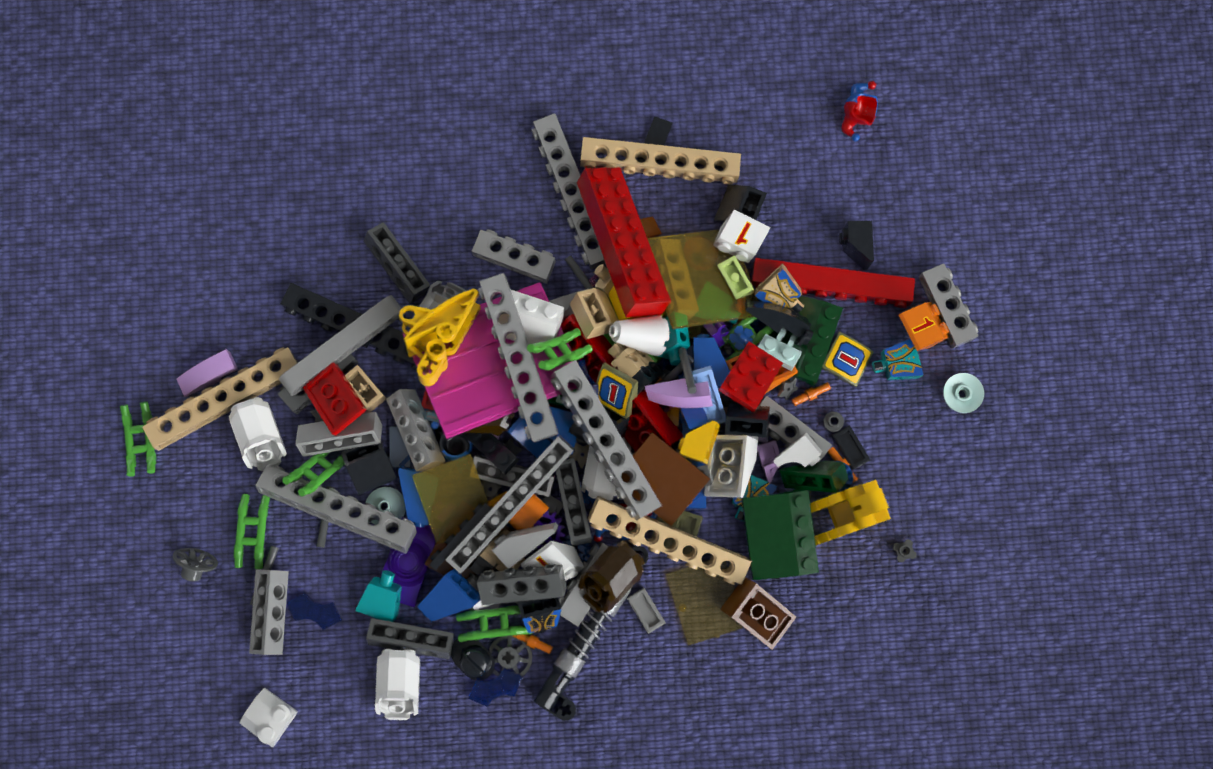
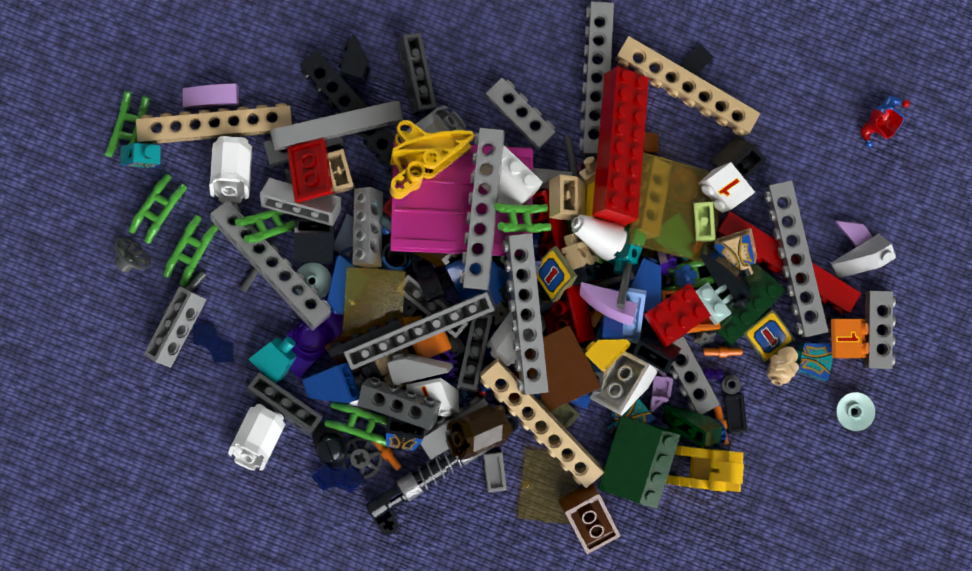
camera: 20 degrees right, 5 degrees up
(164, 458) = (142, 155): none -> teal torso
(190, 513) = (155, 196): none -> bright green piece
(268, 717) = (136, 414): white slope -> none
(333, 279) = (355, 64): none -> black slope
(801, 451) = (691, 399): white arch -> none
(812, 417) = (717, 372): none -> dark purple piece
(858, 242) = (826, 239): black slope -> none
(863, 293) = (800, 249): none -> light grey brick
(874, 381) = (783, 366): none -> tan head
(886, 226) = (855, 232): none -> lavender slope
(901, 556) = (734, 523): dark grey plate -> none
(902, 244) = (865, 257): none -> light grey slope

